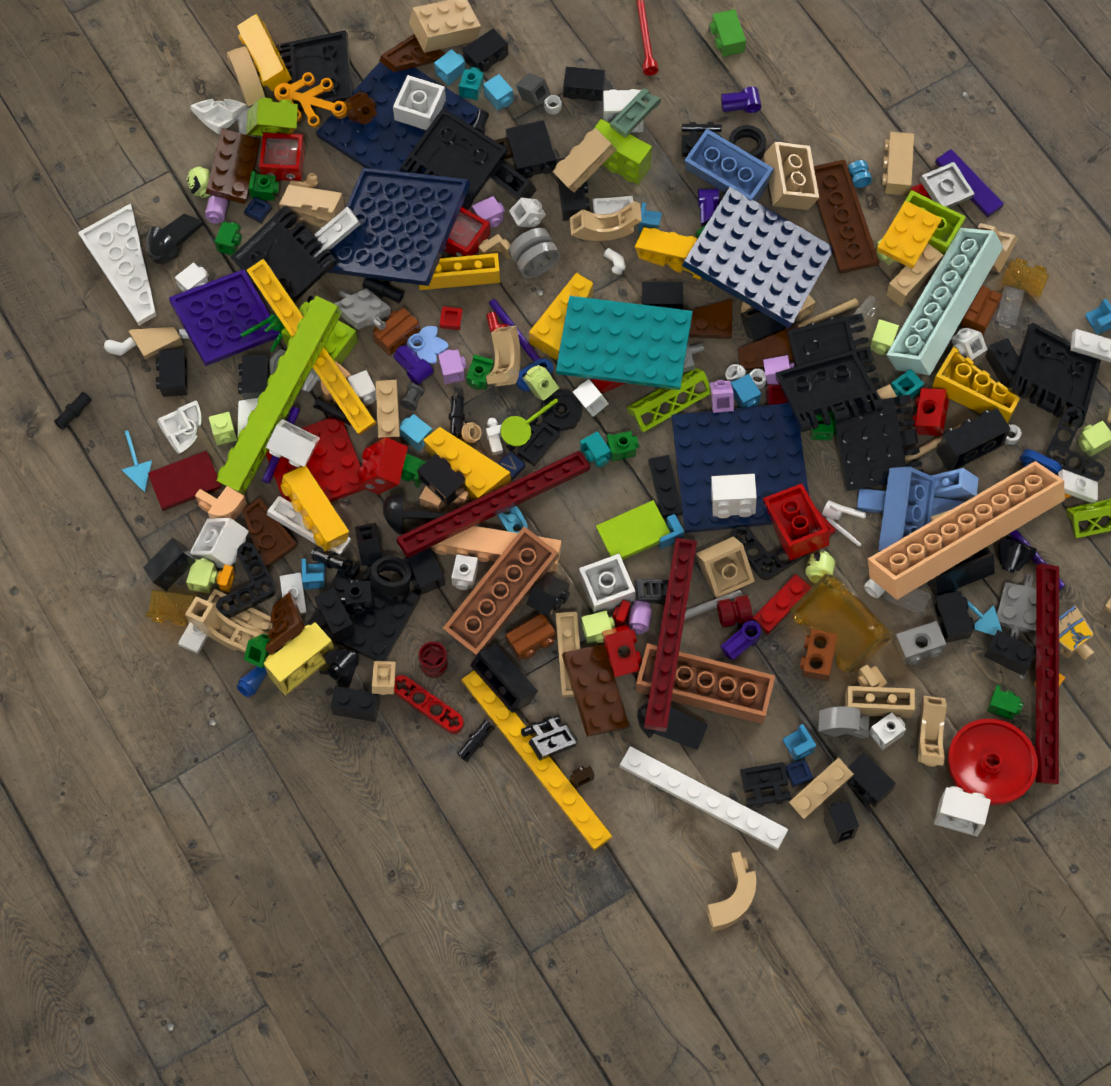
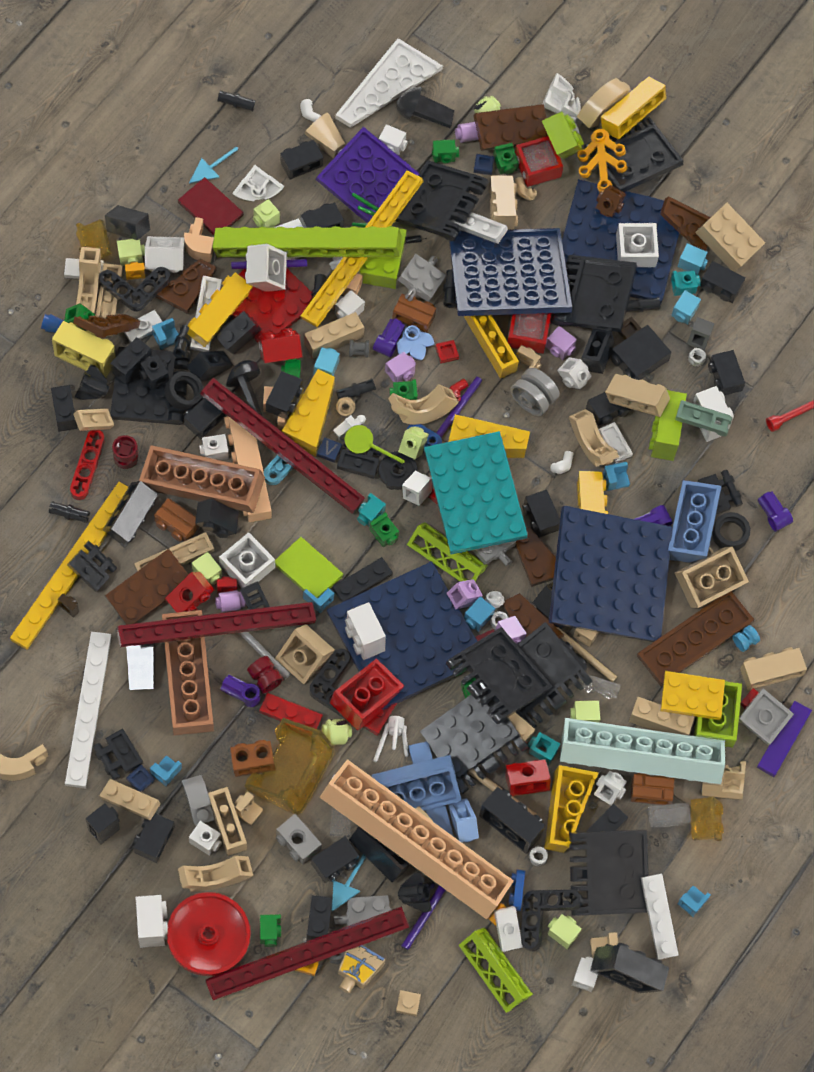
camera: 60 degrees right, 0 degrees up
(347, 500) = (238, 332): none -> black brick

